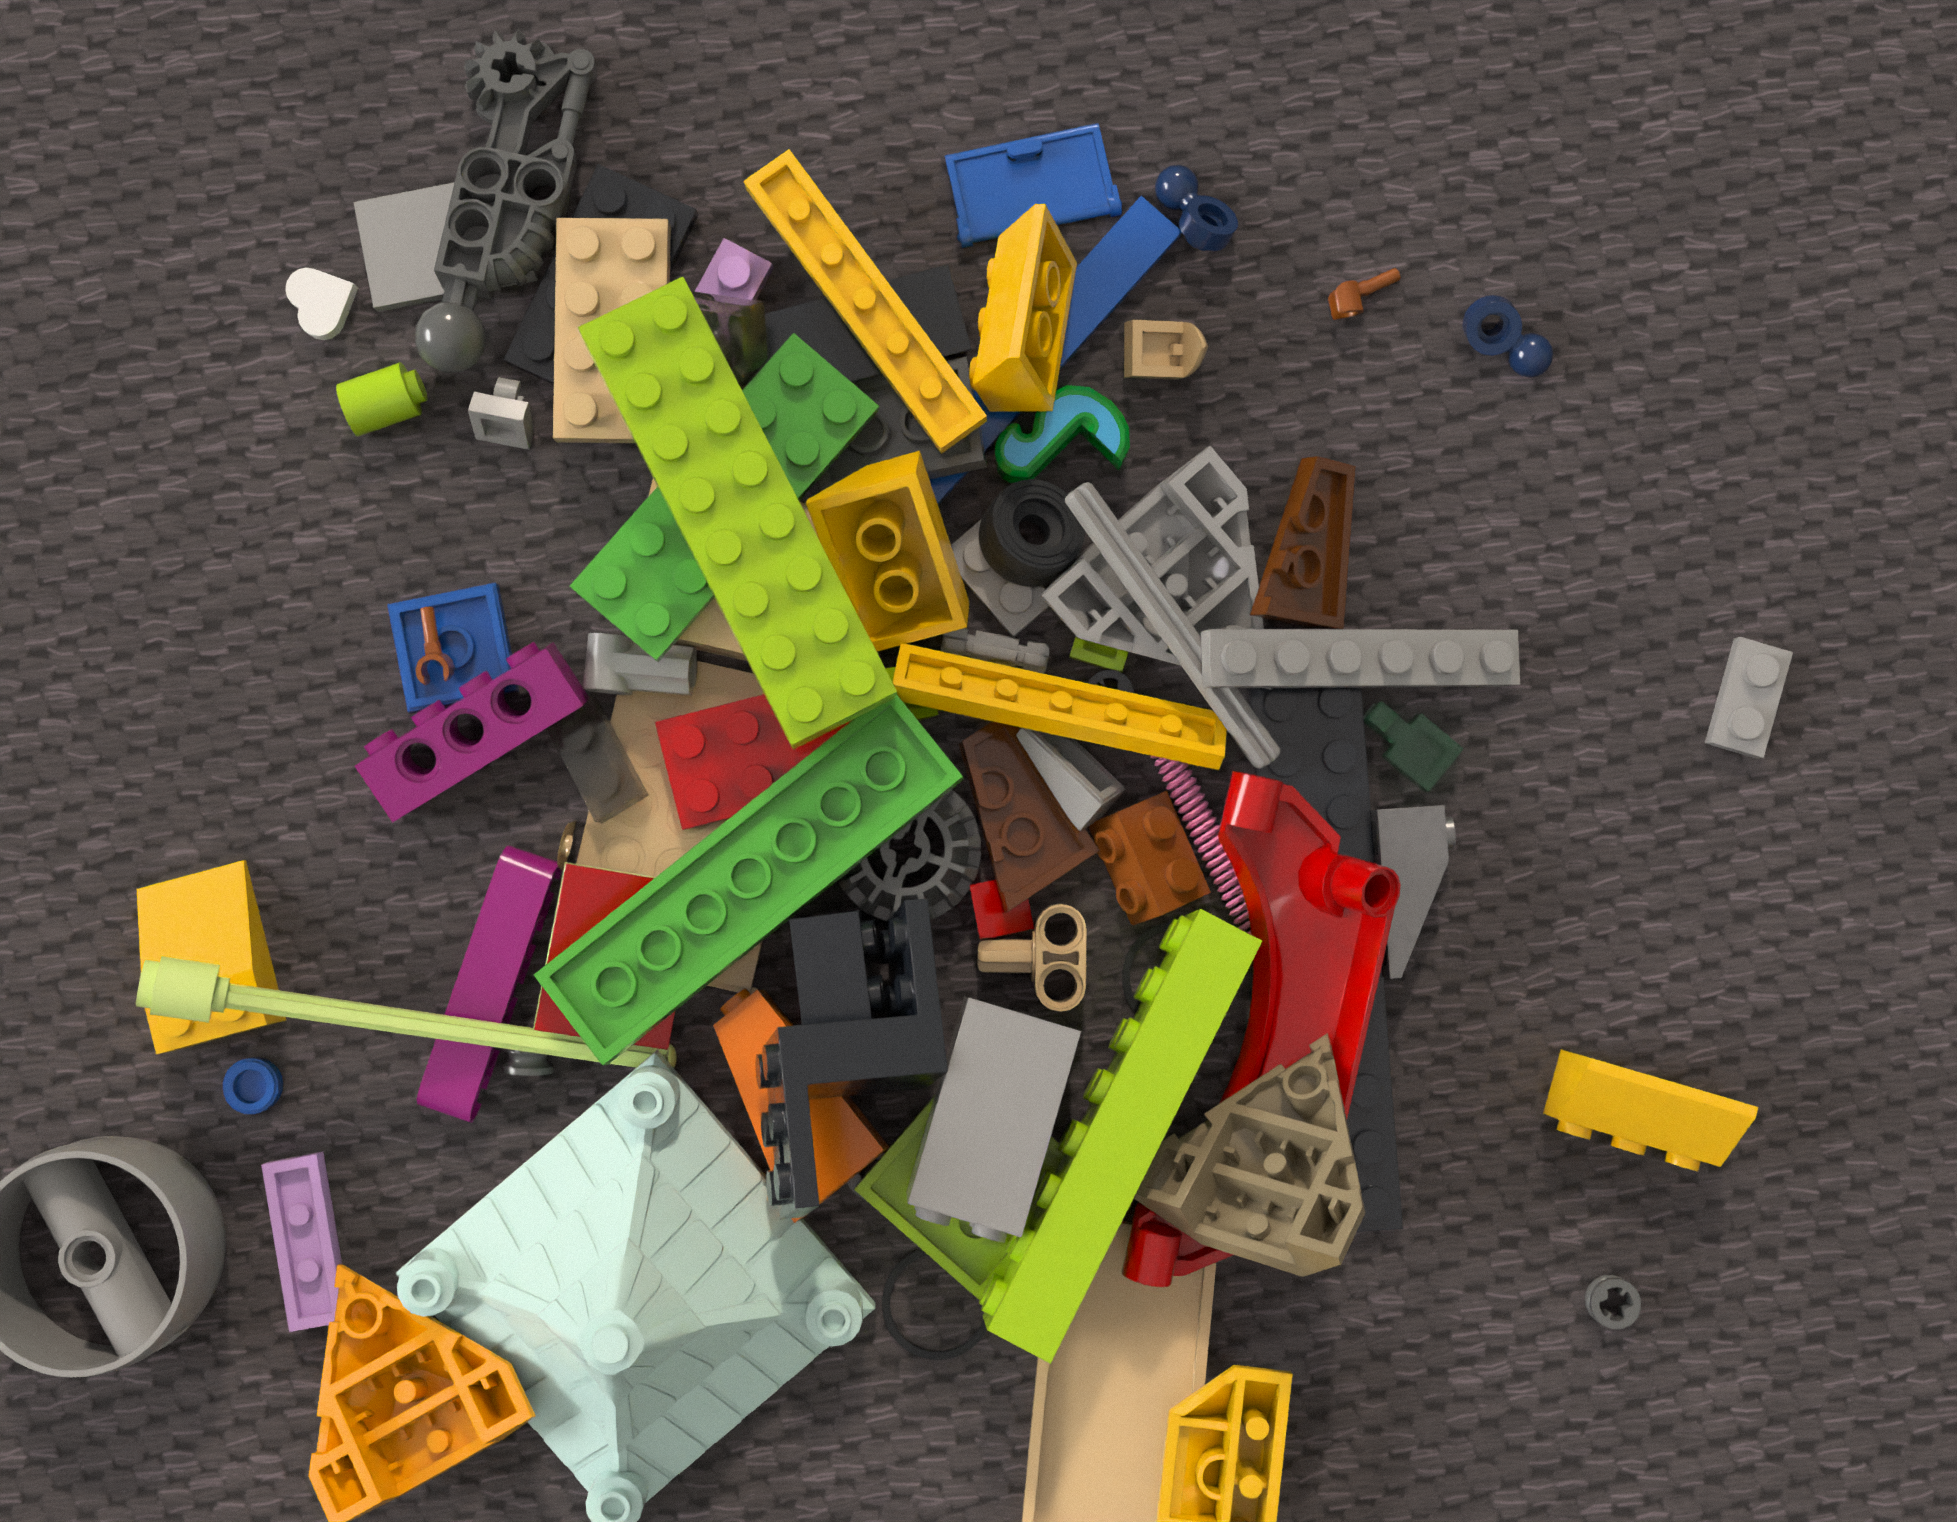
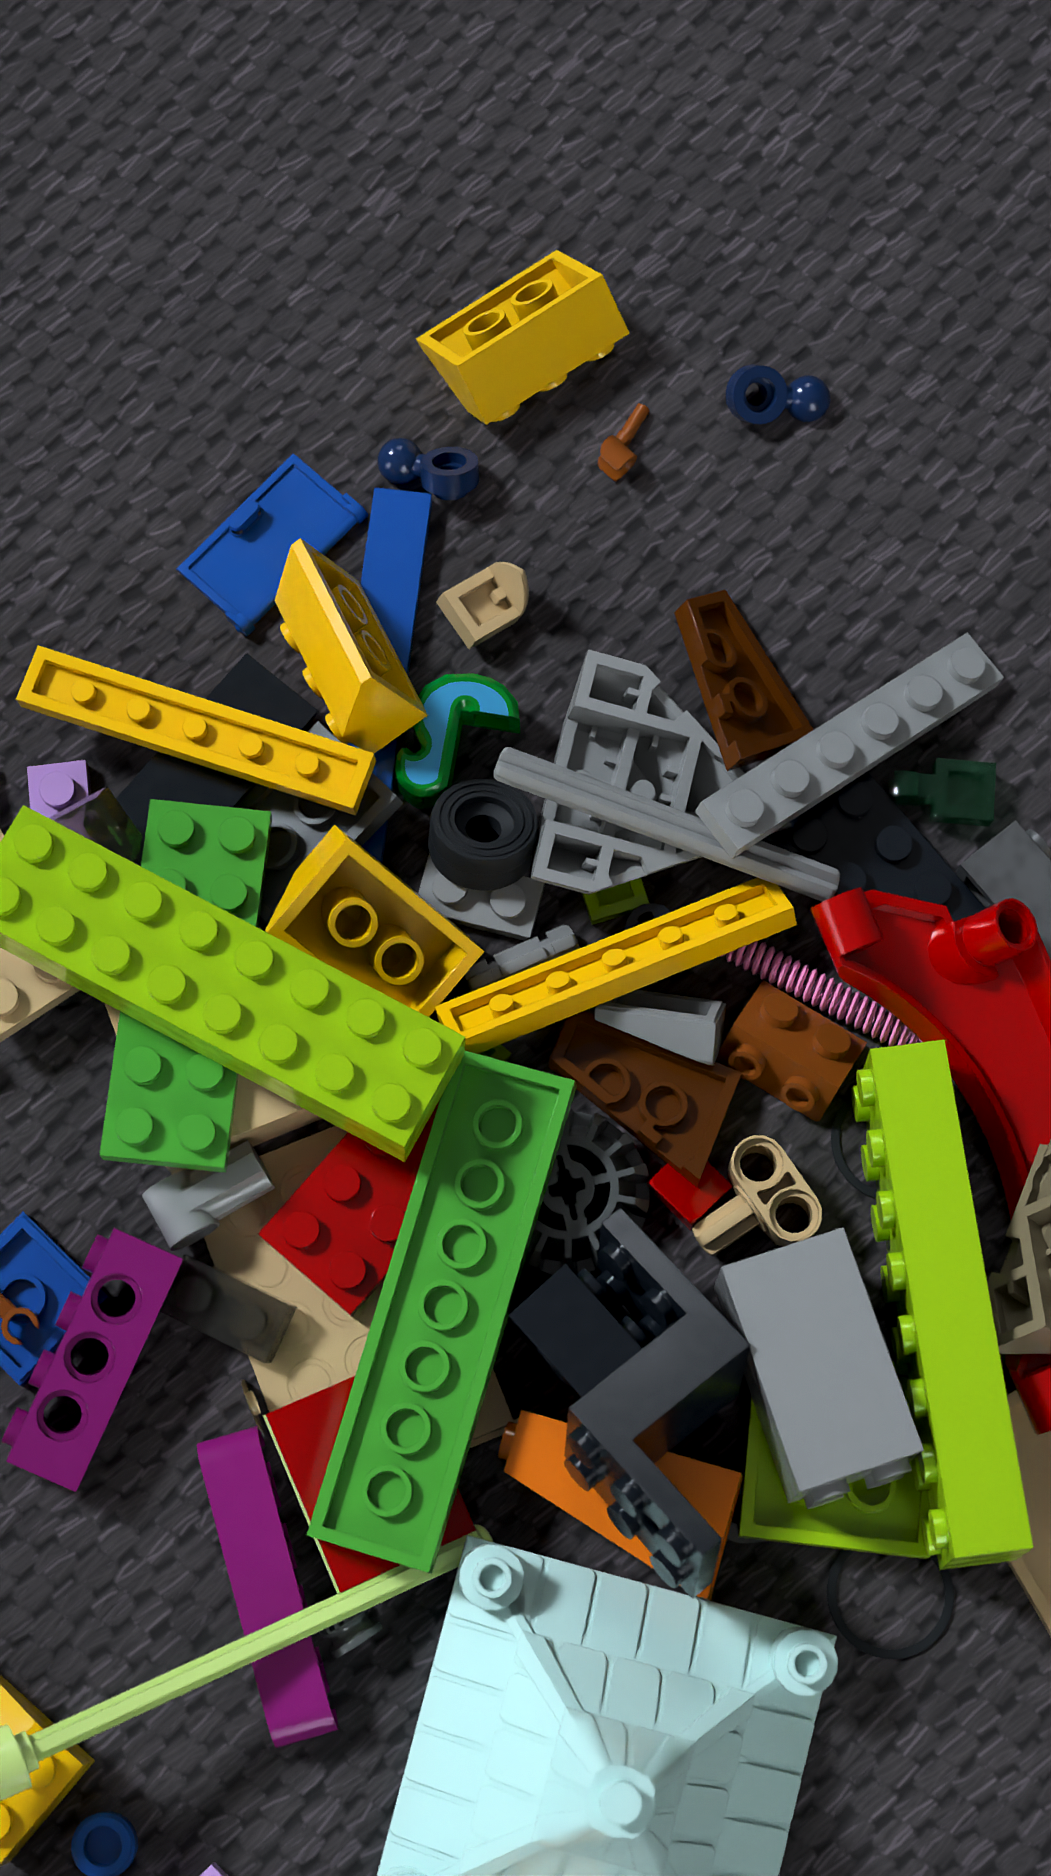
camera: 30 degrees left, 10 degrees down
(1344, 151) = (525, 336): none -> yellow slope

